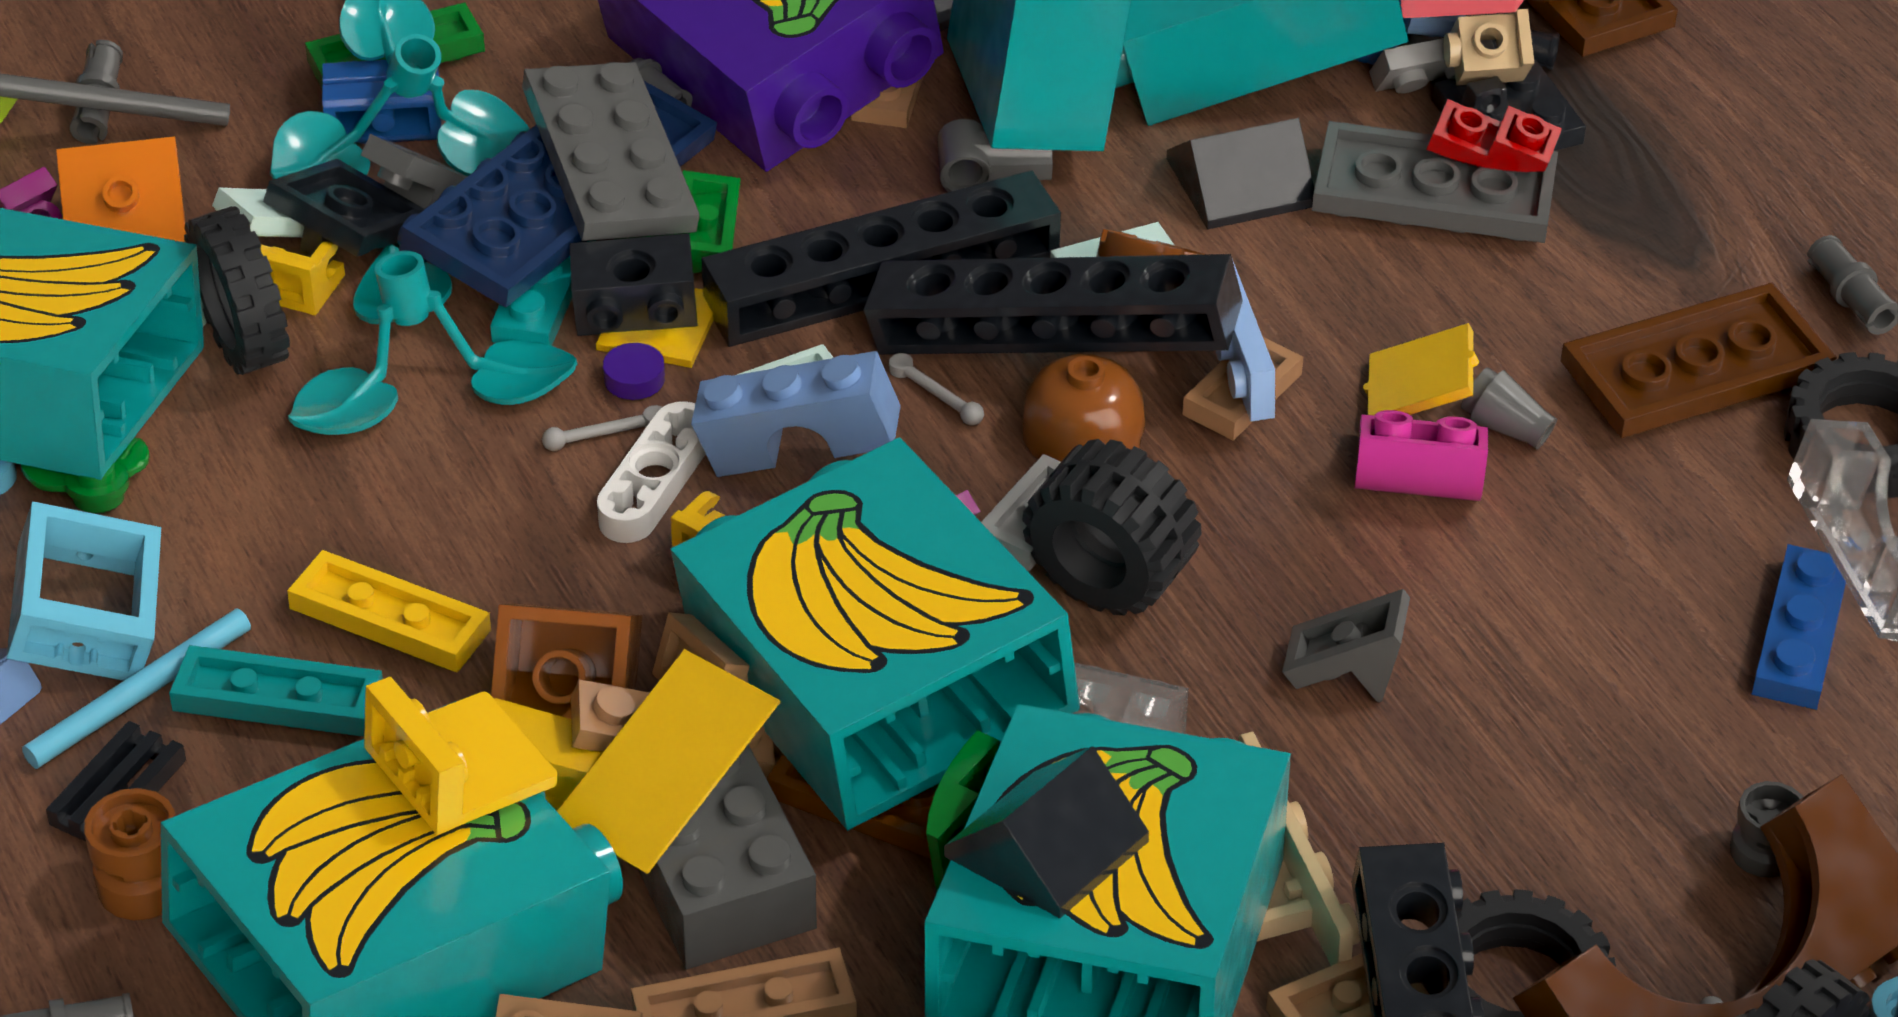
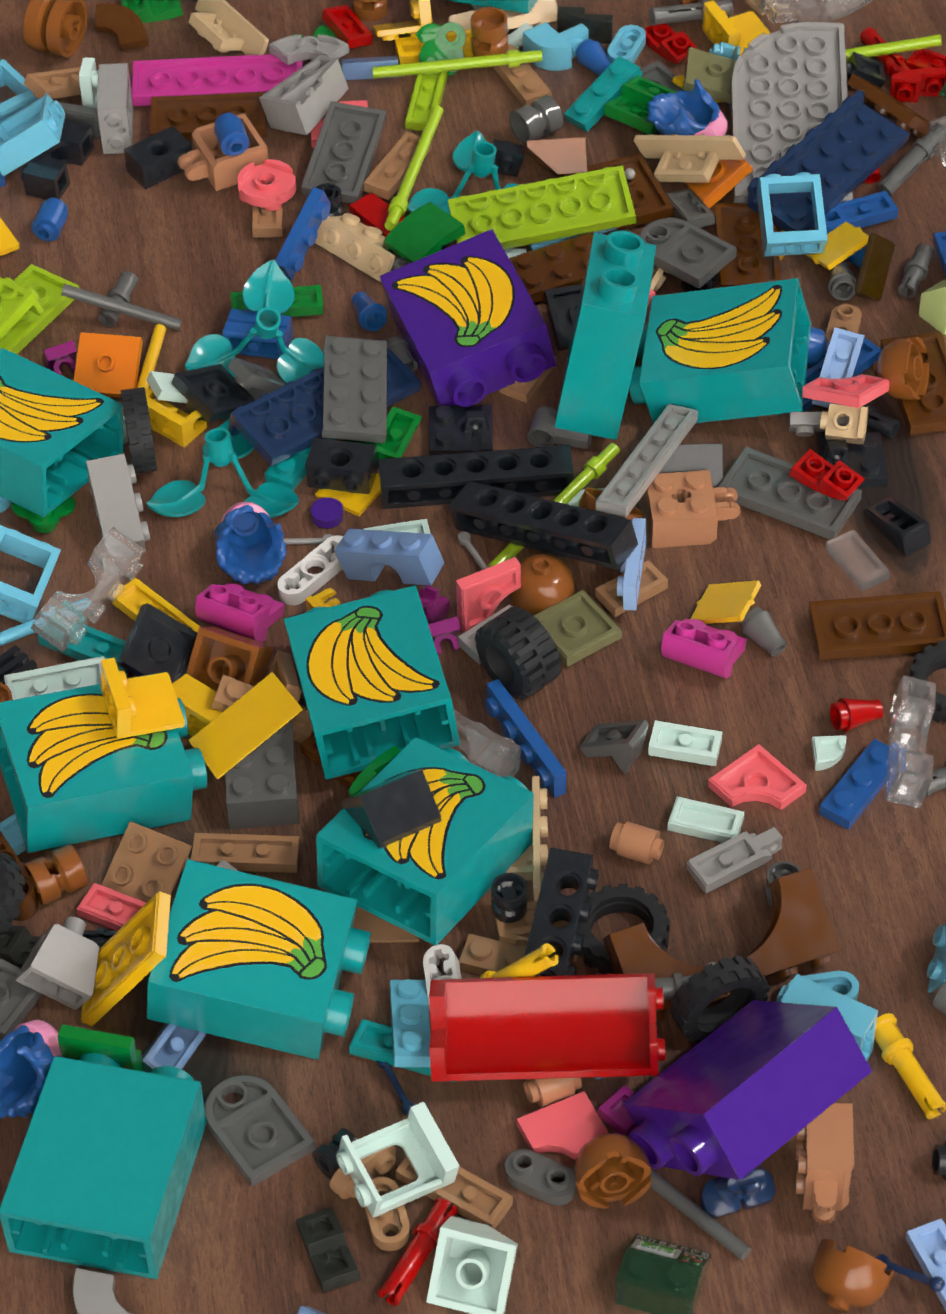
camera: 20 degrees right, 5 degrees up
(195, 168) = (152, 355): none -> yellow bar
(225, 634) = (66, 615): none -> clear arch
(239, 432) = (114, 498): none -> light grey wedge
(244, 758) = (54, 678): none -> light aqua tile
(427, 646) = (157, 645): none -> black hinge
(523, 446) = (249, 544): none -> blue hair
(544, 567) = (238, 610): none -> dark pink brick
(569, 31) = (370, 313): none -> blue cone
(812, 187) = (460, 429): none -> black hinge
(1001, 432) = (484, 590): none -> coral tile
(1085, 207) = (592, 470): none -> lime bar
(1144, 649) = (519, 729): none -> blue plate
(1191, 165) = (646, 460): none -> light grey tile
(1203, 459) = (578, 627): none -> olive plate
(1280, 232) = (687, 508): none -> nougat hinge
(1301, 964) = (509, 897): none -> black wheel
(1470, 624) = (685, 743): none -> light aqua plate
(1471, 813) = (636, 842): none -> nougat brick
(1566, 750) = (705, 820): none -> light aqua tile
(1600, 265) = (857, 560): none -> clear tile
(1621, 657) = (757, 778): none -> coral tile
(1642, 196) = (901, 527): none -> black slope
(1653, 804) = (733, 858): none -> light grey hinge
(1712, 583) = (827, 750): none -> light aqua tile
(1728, 511) = (852, 713): none -> red cone

